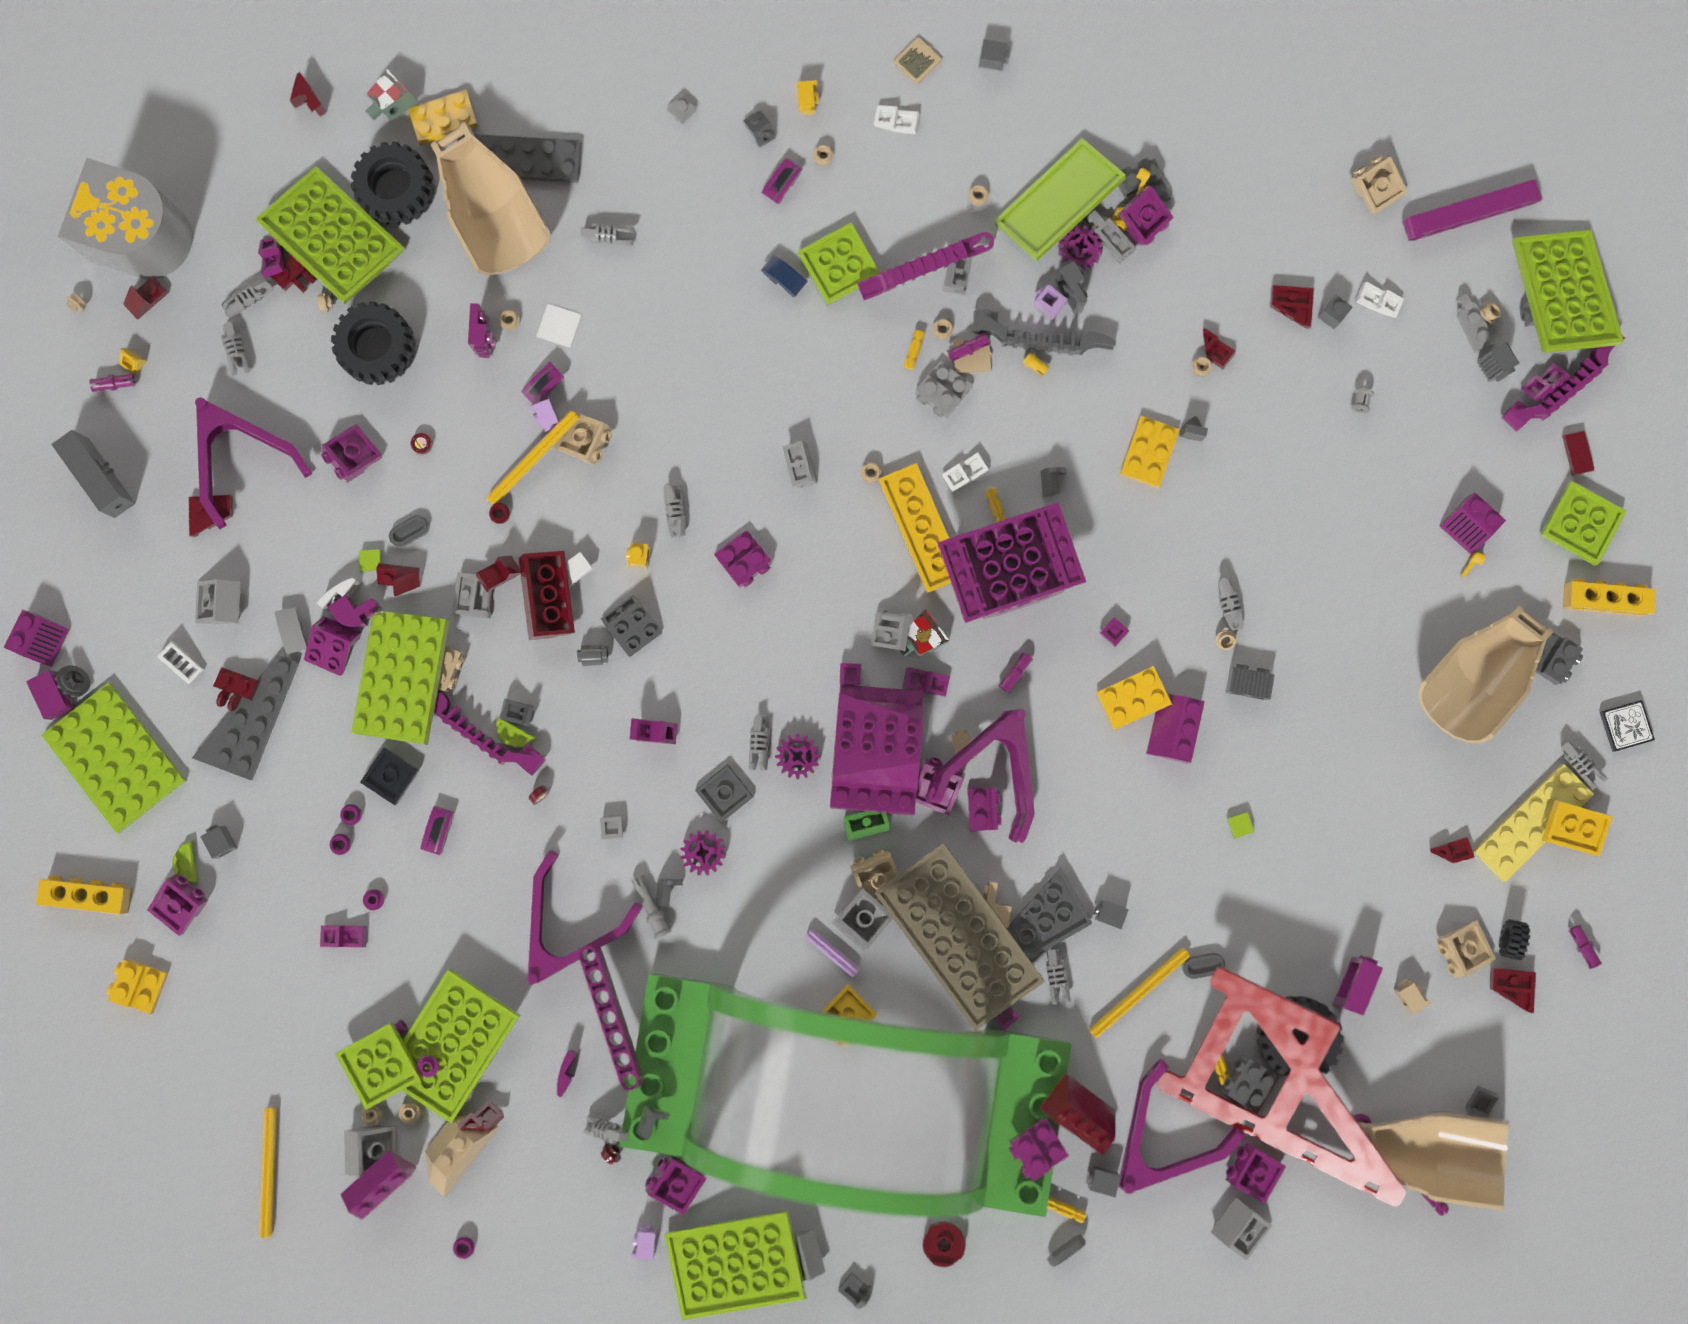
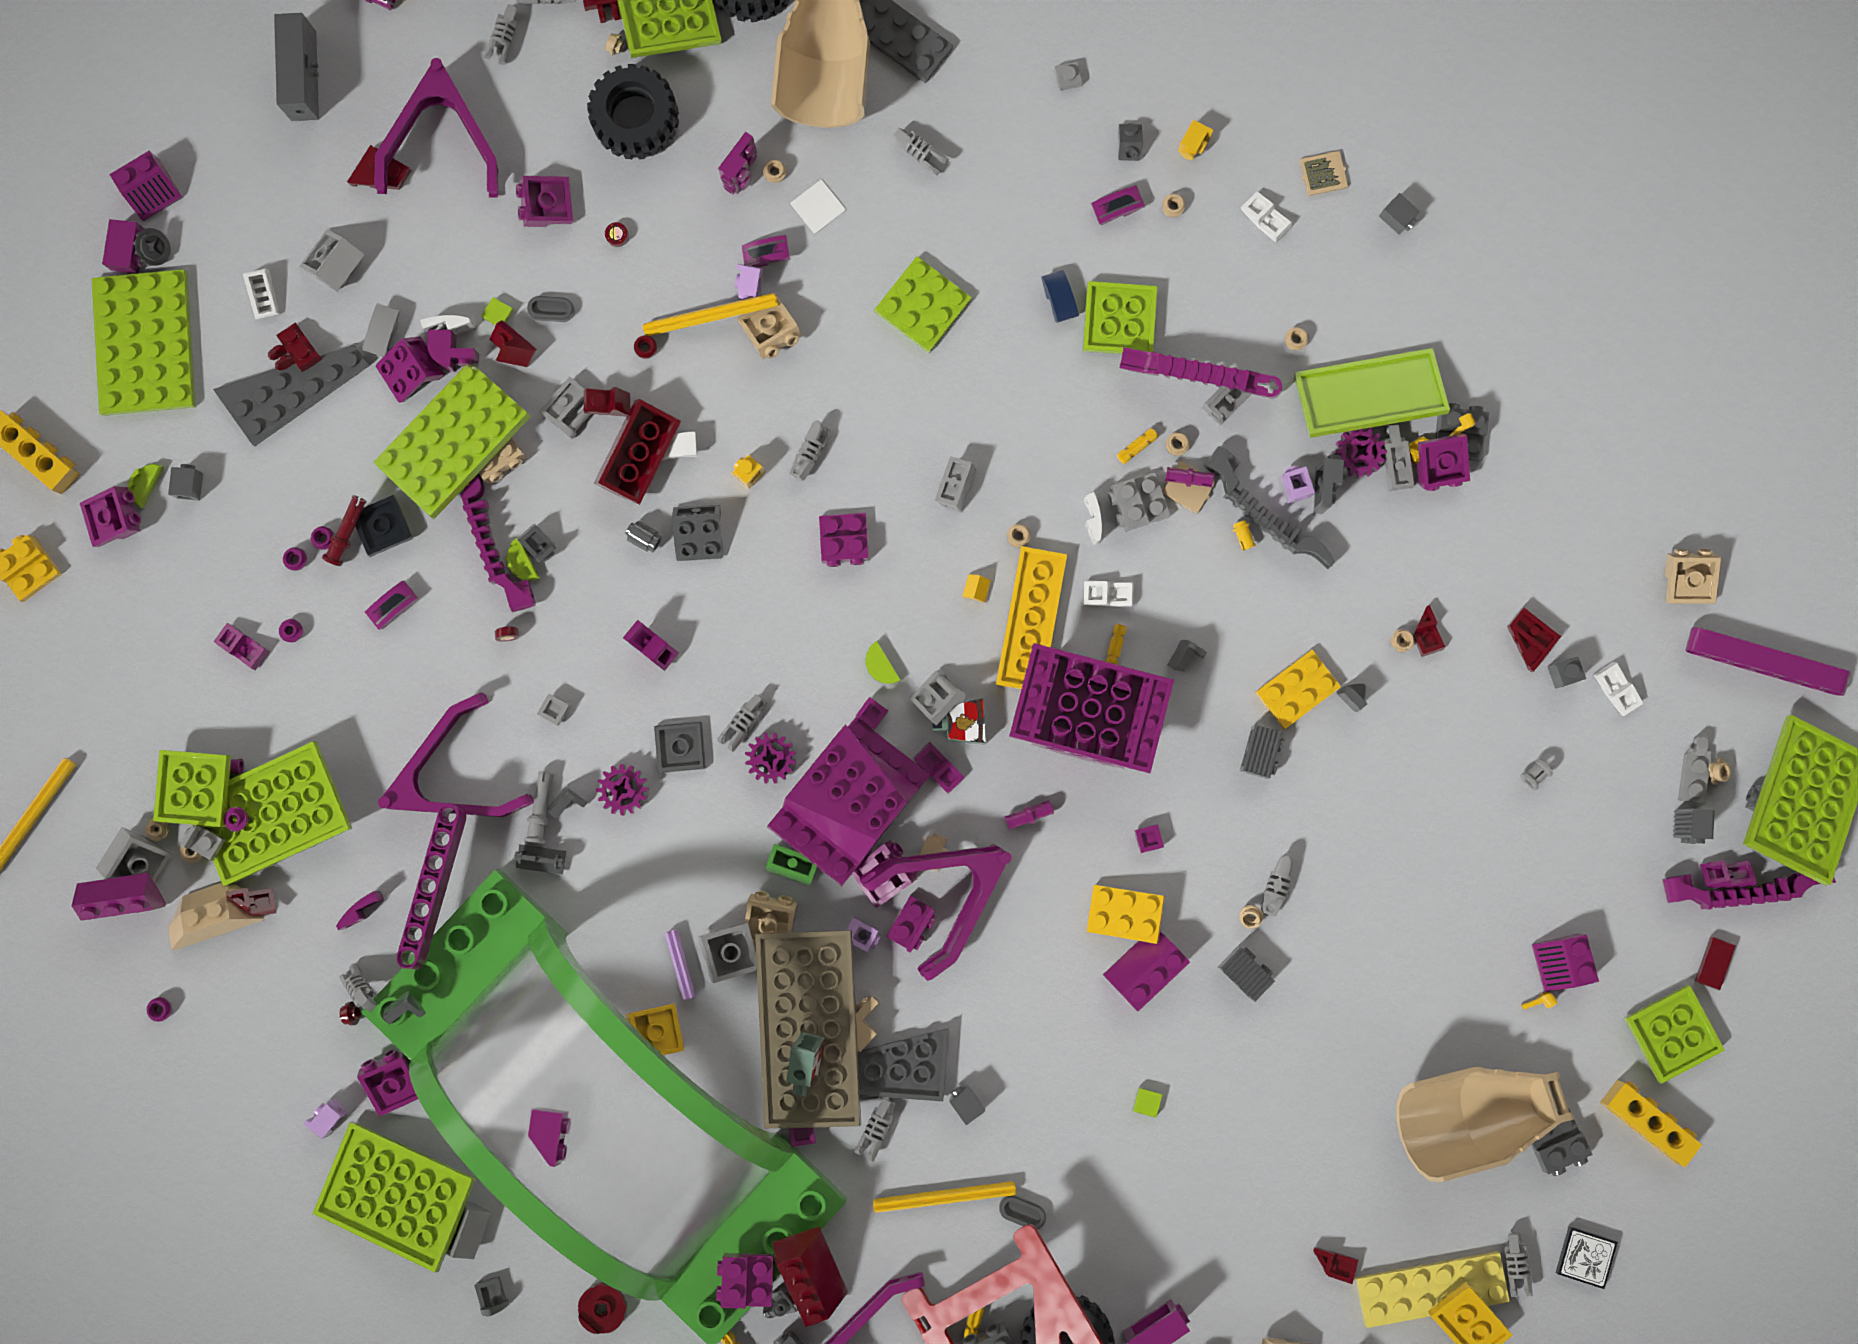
camera: 35 degrees right, 0 degrees up
(366, 807) = (340, 540): none -> dark red pin
(414, 1100) = (202, 841): none -> light grey bracket
(676, 944) = (540, 859): none -> dark grey hinge
(686, 347) = (922, 304): none -> lime plate
(828, 1132) = (548, 1133): none -> magenta slope
(832, 636) = (879, 666): none -> lime tile
(865, 531) = (976, 588): none -> yellow slope
(922, 428) = (1093, 525): none -> white slope
(961, 840) = (872, 938): none -> lavender brick
(974, 961) = (804, 1062): none -> sand green torso
(1075, 1150) = (781, 1304): none -> dark grey hinge
(1154, 514) = (1262, 752): none -> dark grey brick

